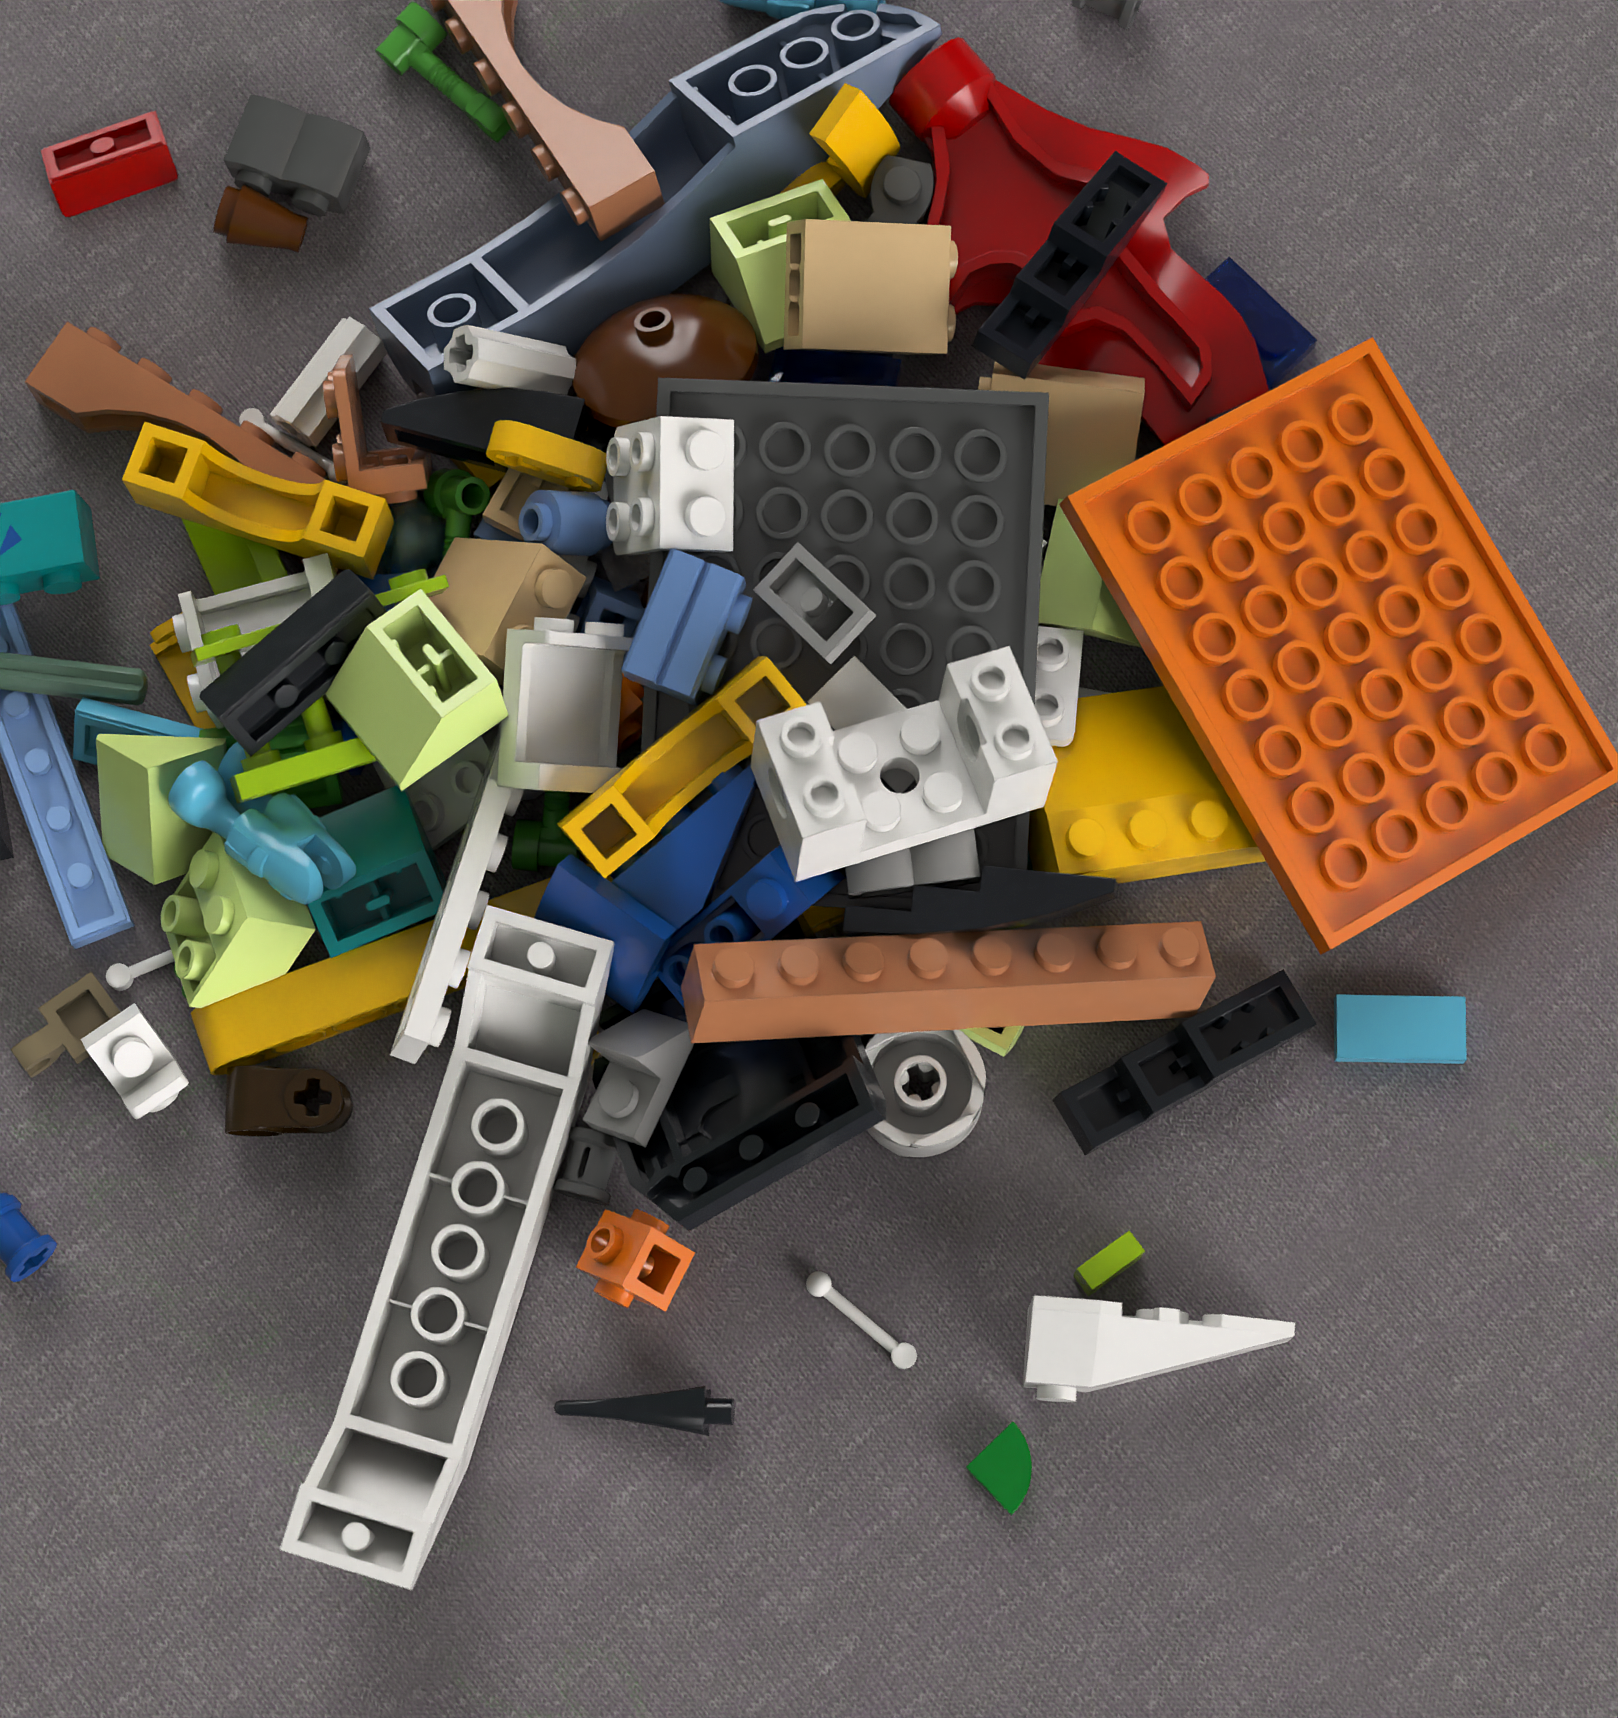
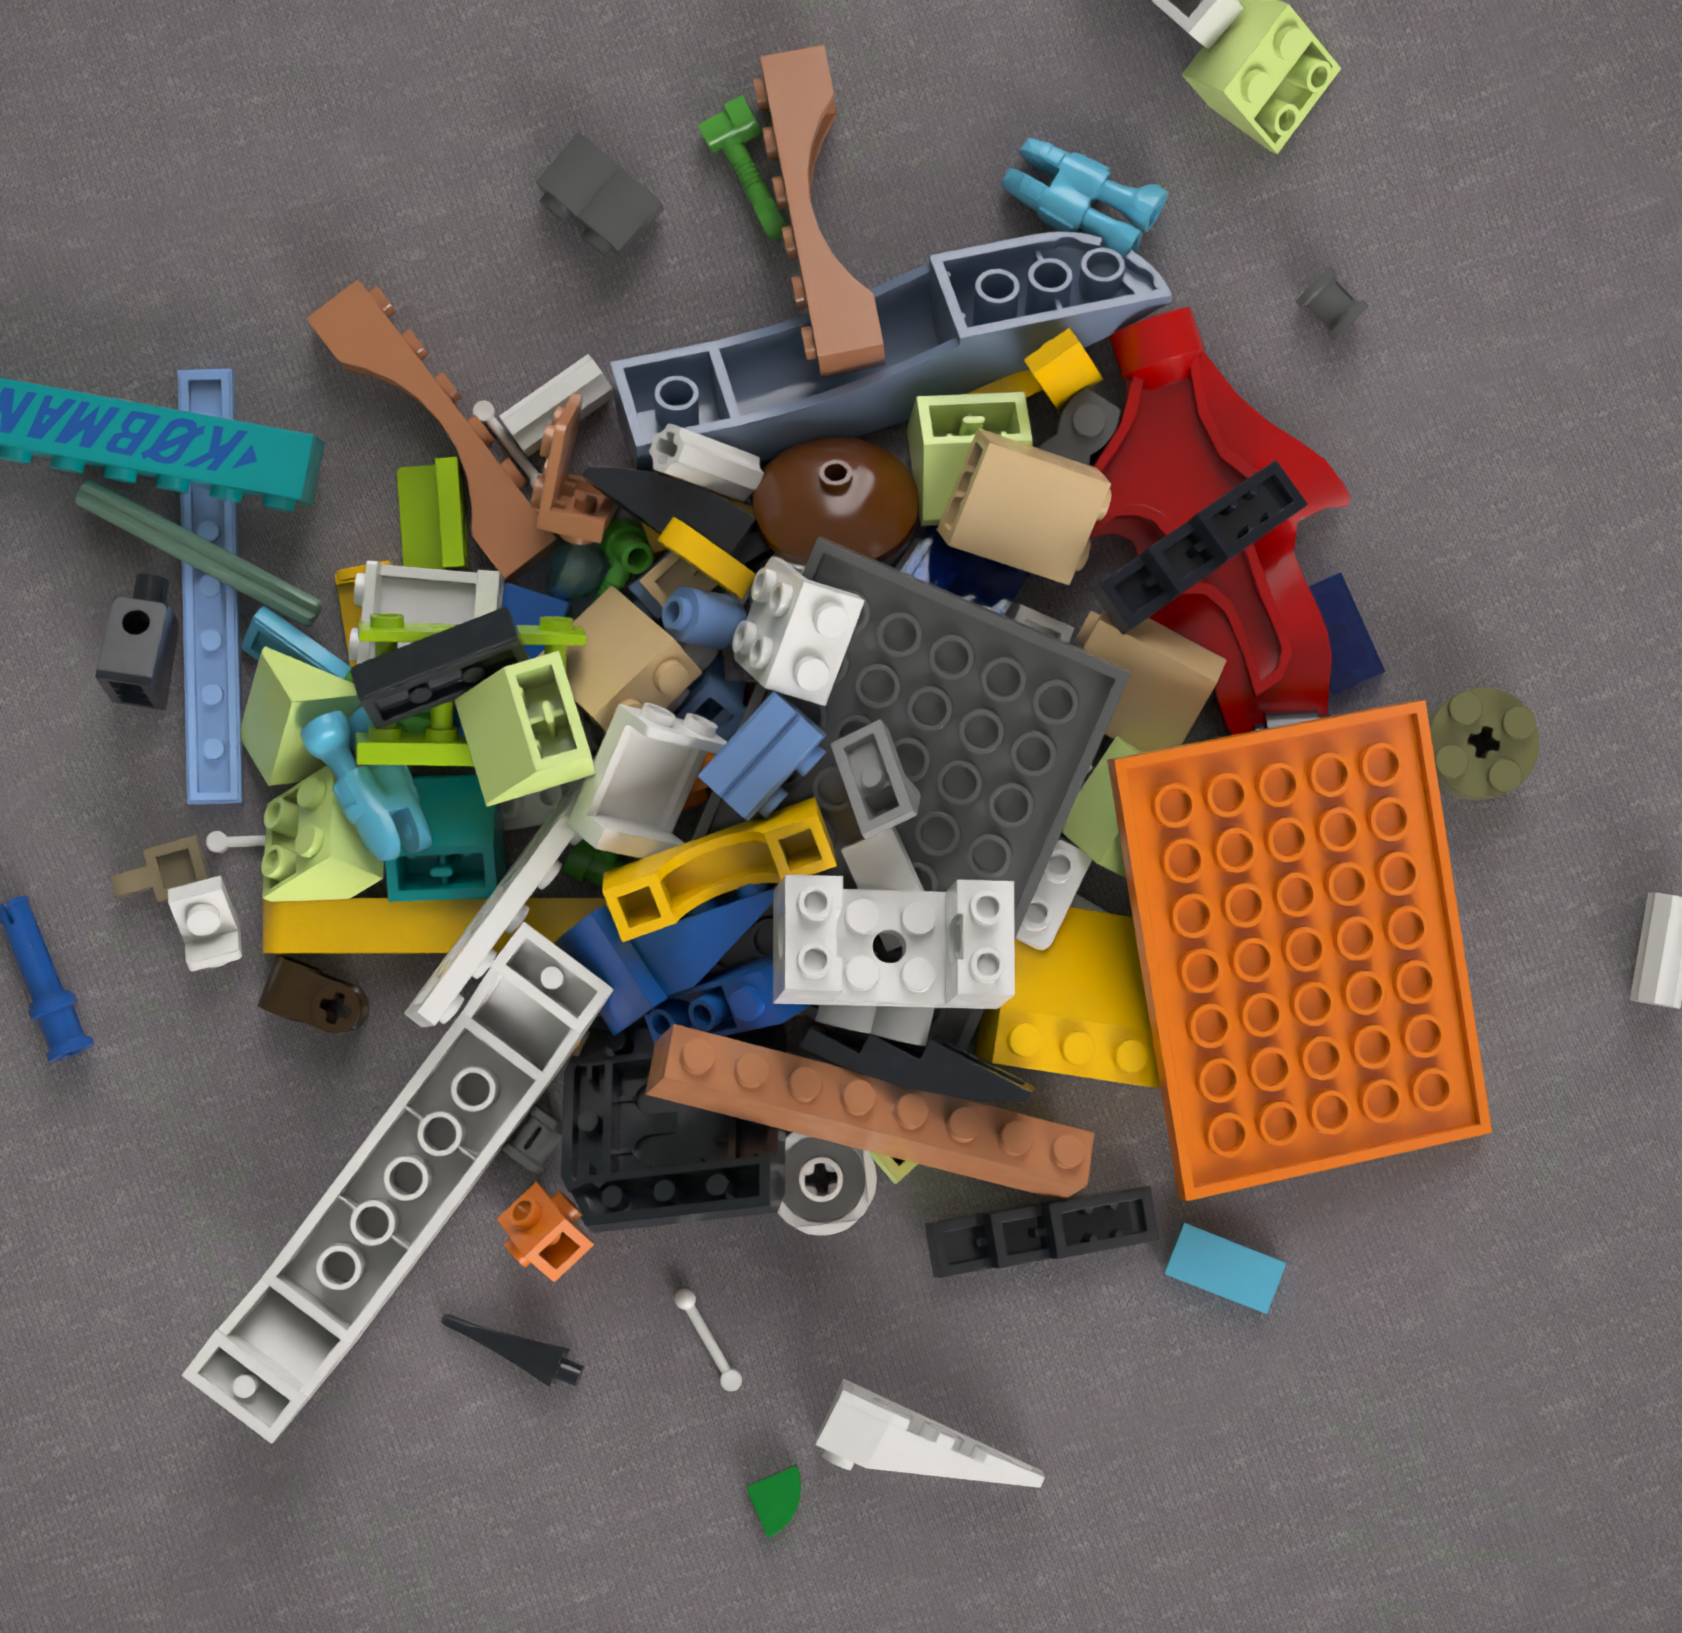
camera: 20 degrees right, 10 degrees up
(109, 164) = (441, 141): red slope -> none
(208, 488) = (459, 503): yellow arch -> none
(258, 221) = (548, 241): reddish brown cone -> none
(643, 1069) = (607, 1083): light grey slope -> none
(1109, 1263) = (918, 1371): lime tile -> none
(1468, 347) = (1506, 728): none -> olive brick

